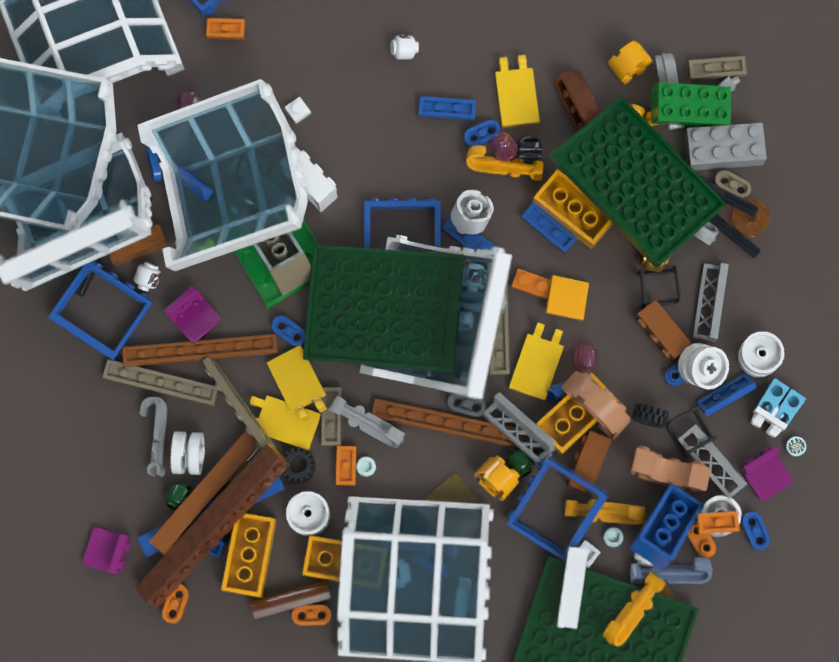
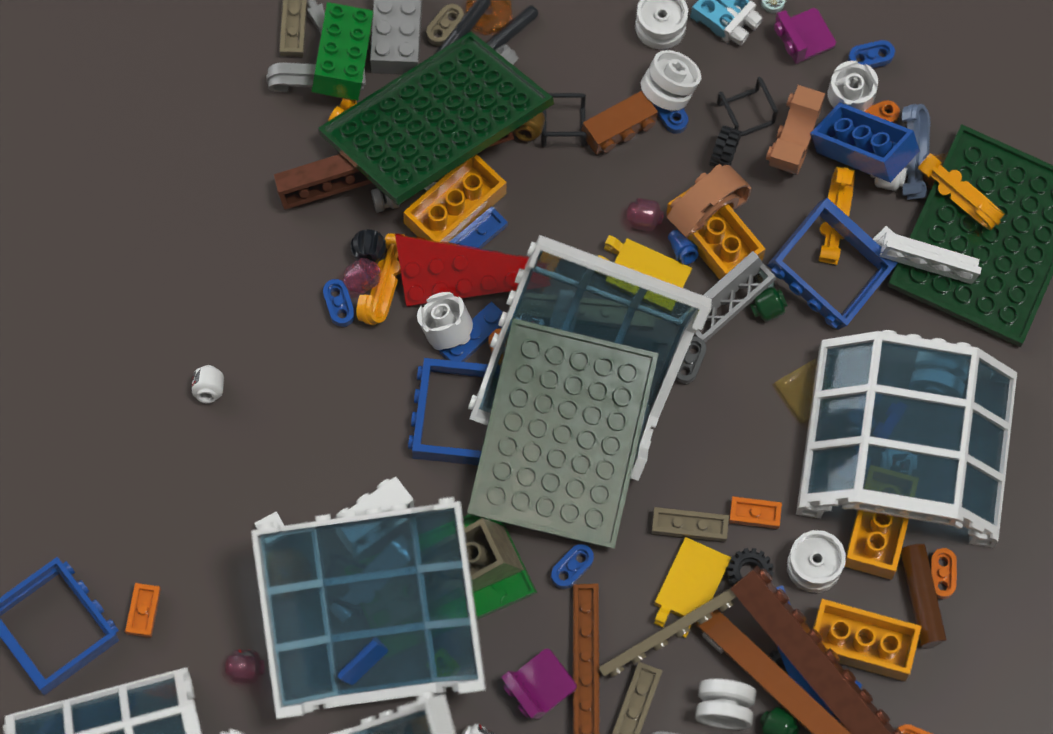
camera: 90 degrees left, 10 degrees down
(155, 169) = (320, 721): blue plate -> none
(297, 382) = (641, 560): yellow tile -> none
(366, 466) = (757, 489): light aqua tile -> none
(368, 423) = (704, 477): light grey piece -> none
(442, 422) = (708, 395): dark orange tile -> none
(447, 108) = (298, 341): blue plate -> none
(497, 478) = (787, 330): light orange brick -> none
(515, 221) = (454, 268): none -> red wing
(517, 94) = (290, 256): yellow tile -> none
(567, 298) = (566, 225): light orange tile -> none
(589, 460) = (774, 224): dark orange brick -> none
(613, 537) = (867, 212): light aqua tile -> none
(630, 61) = (273, 115): light orange brick -> none
(718, 298) = (592, 60): light grey fence -> none
(718, 522) = (865, 84): orange plate -> none
(721, 460) = (778, 84): light grey fence -> none
(726, 394) = (712, 77): blue plate -> none

